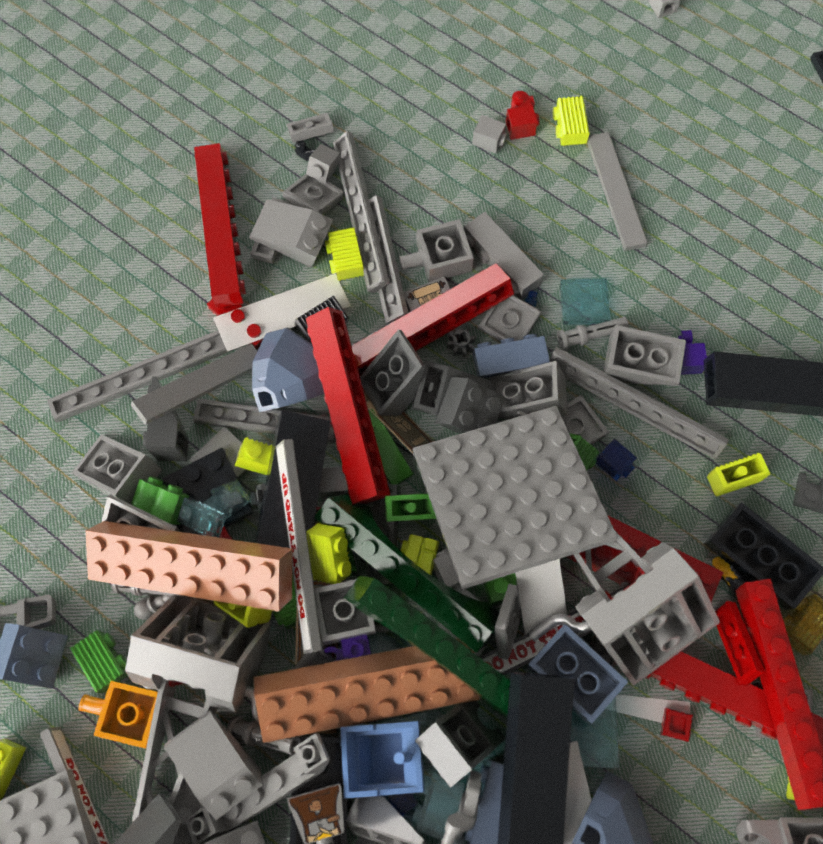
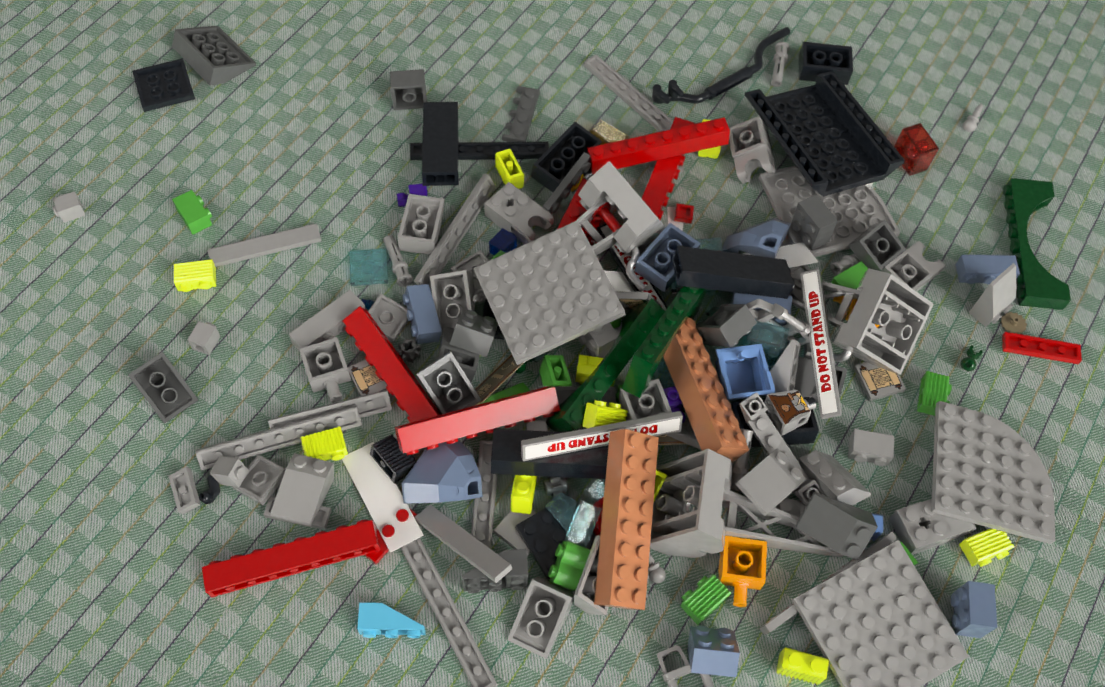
camera: 100 degrees left, 10 degrees down
(141, 311) = (382, 620): none -> medium azure slope
(430, 100) = (163, 387): none -> dark grey slope
(521, 118) = (189, 310): red brick -> none
(660, 113) = (192, 212): none -> bright green brick
(660, 485) = (517, 213): none -> light grey brick
(716, 553) = (567, 183): none -> dark grey hinge
(738, 644) = (637, 168): red plate -> none
(778, 460) = (487, 150): none -> black tile

